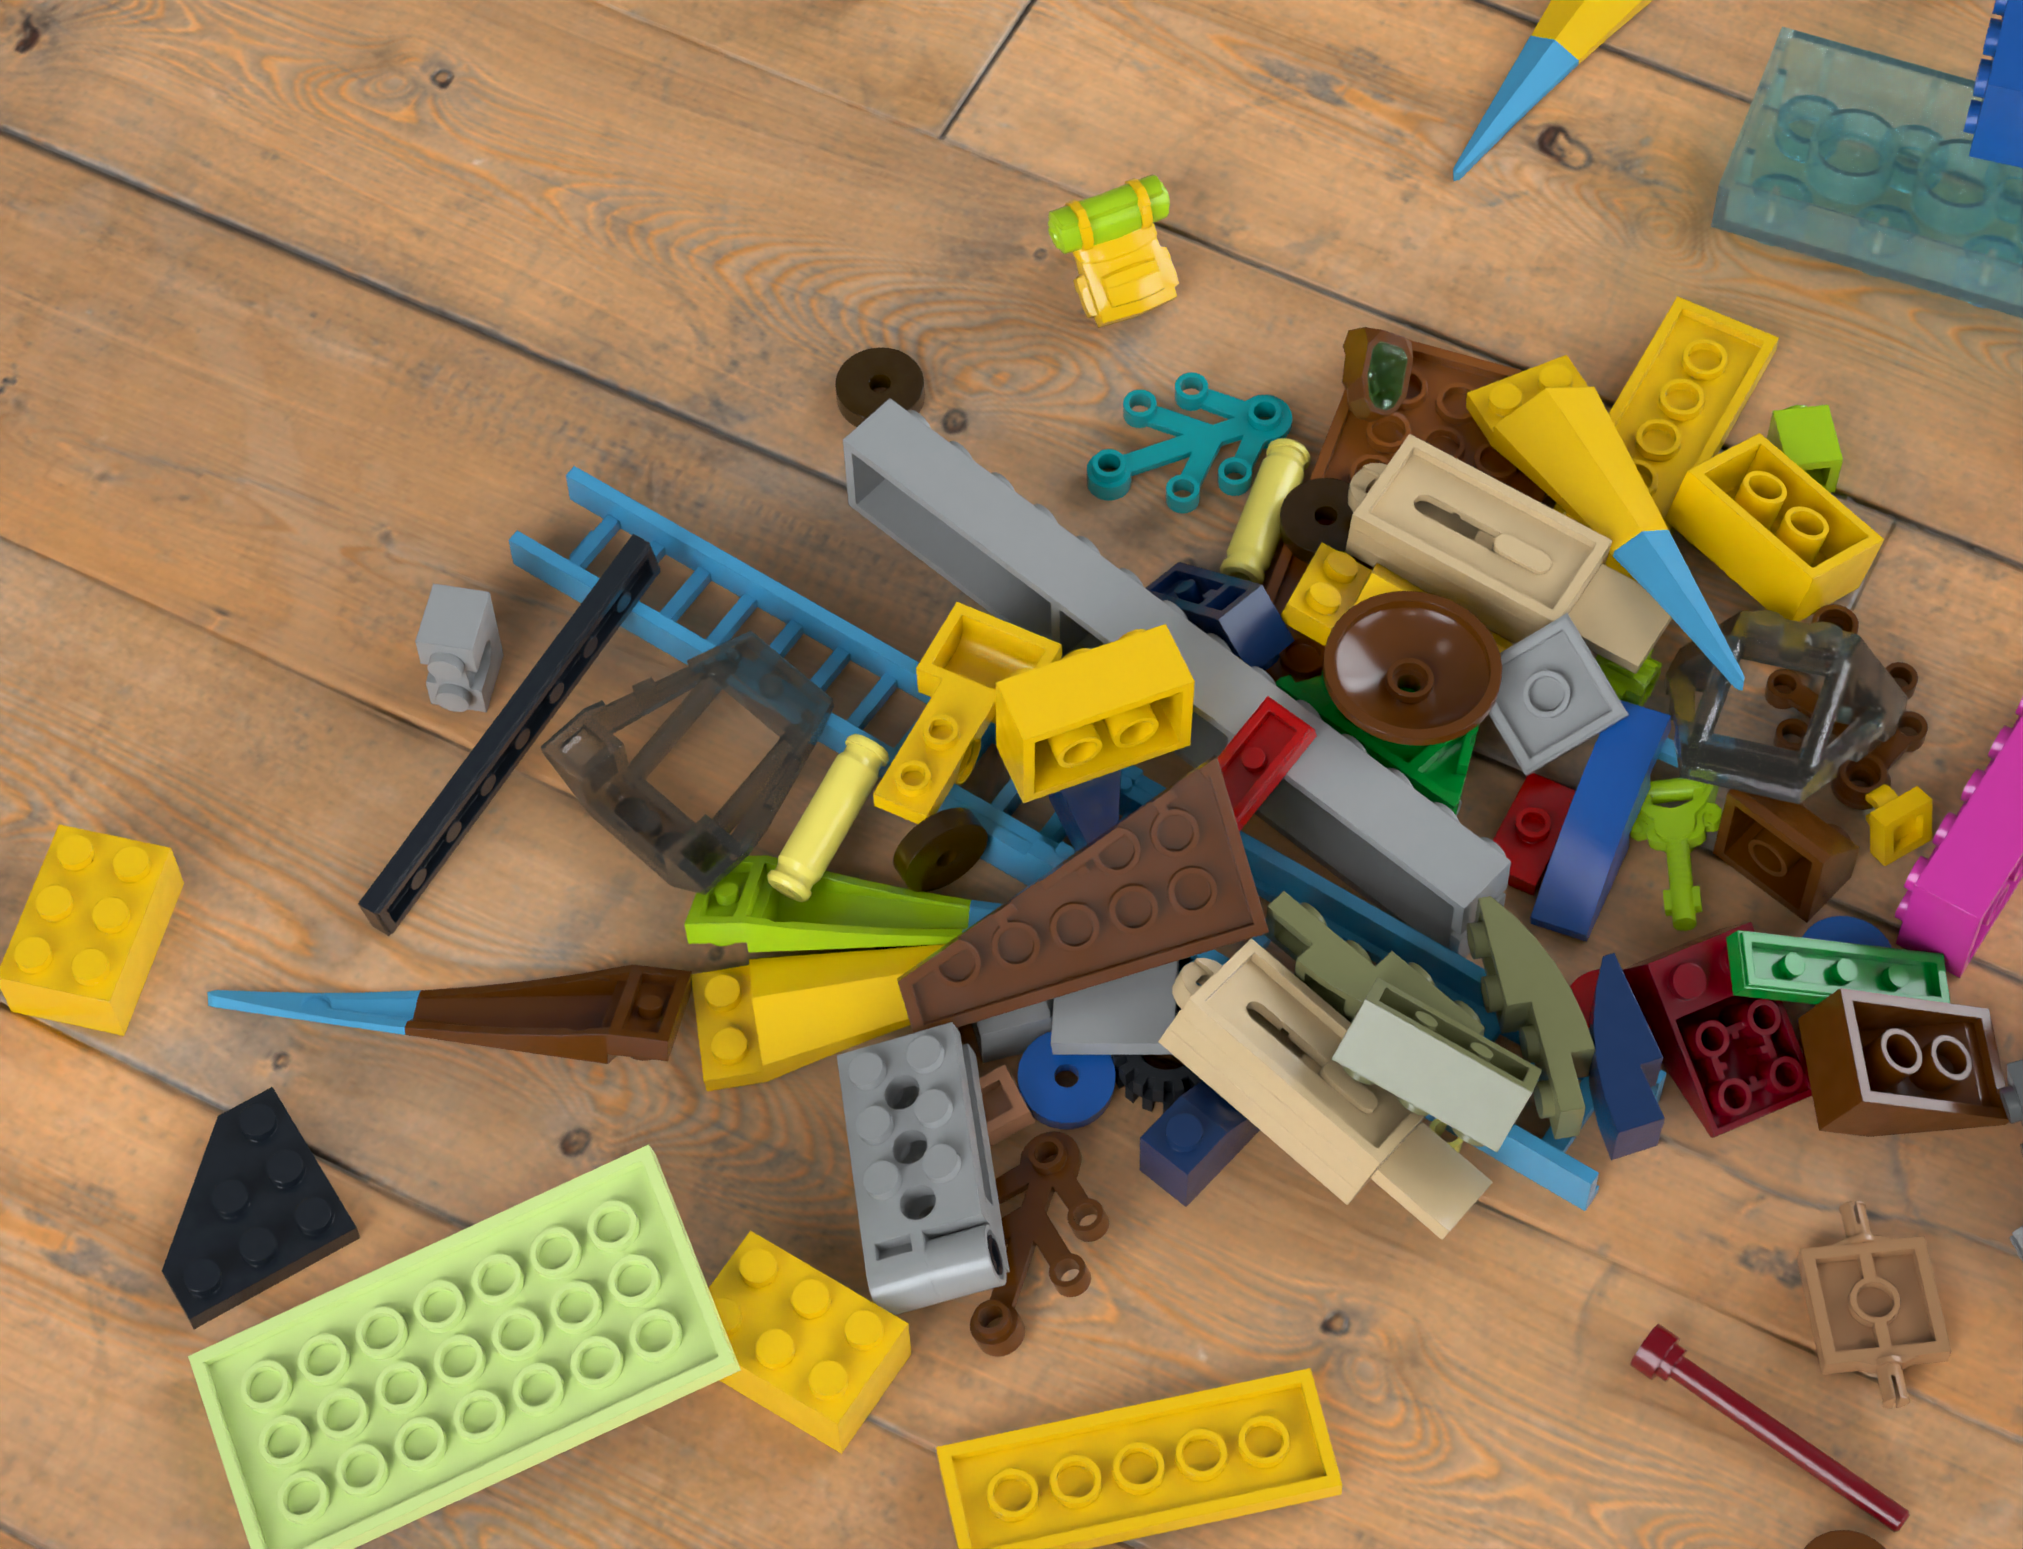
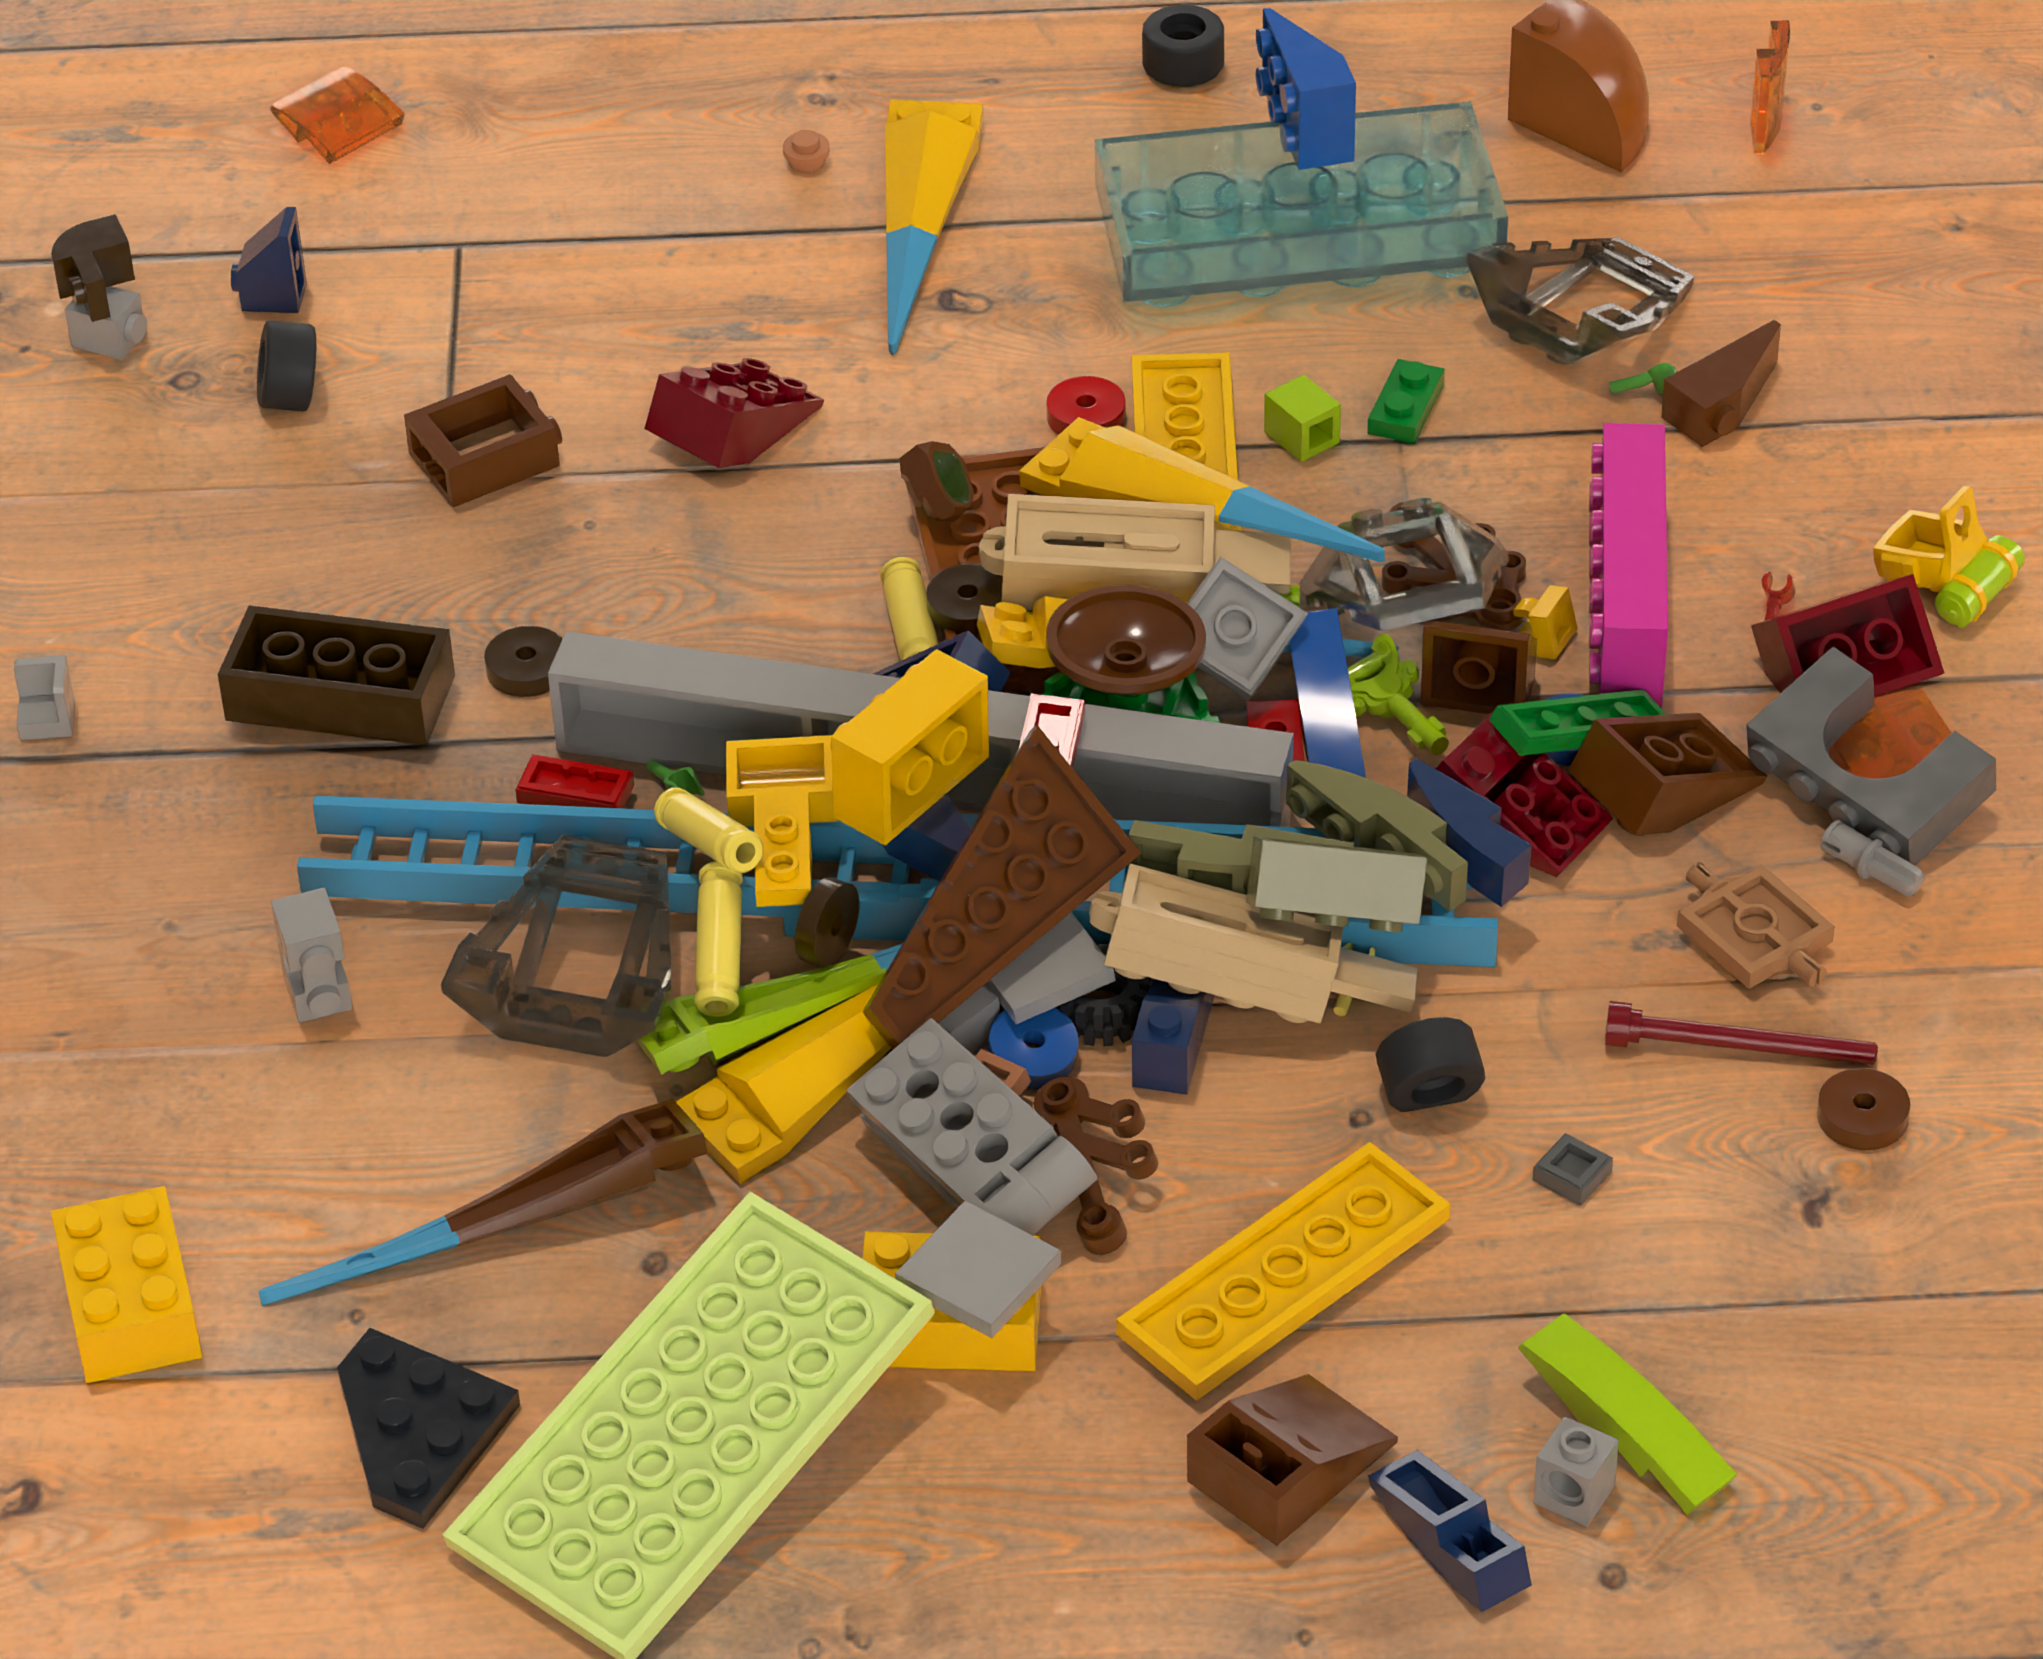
camera: 30 degrees left, 15 degrees down
(423, 234) = (44, 697): none -> light grey panel
(510, 736) = (403, 997): black tile -> none
(684, 332) = (337, 675): none -> dark brown brick
(814, 1340) = (979, 1268): none -> light grey tile
(829, 561) = (573, 784): none -> red plate
(877, 698) = (708, 830): none -> light yellow axle
(926, 602) = (681, 778): none -> bright green hand
(992, 148) = (494, 465): none -> reddish brown window
(1117, 250) = (665, 482): yellow piece -> none
(1192, 440) = (854, 563): teal plant -> none
(1245, 183) = (728, 410): none -> dark red slope
(1425, 1310) = (1430, 1064): none -> black tyre
(1502, 1499) = (1572, 1169): none -> dark grey tile
(1603, 316) = (1086, 398): none -> red piece
(1773, 529) = (1323, 464): yellow brick -> none
(1931, 474) = (1406, 401): none -> green plate

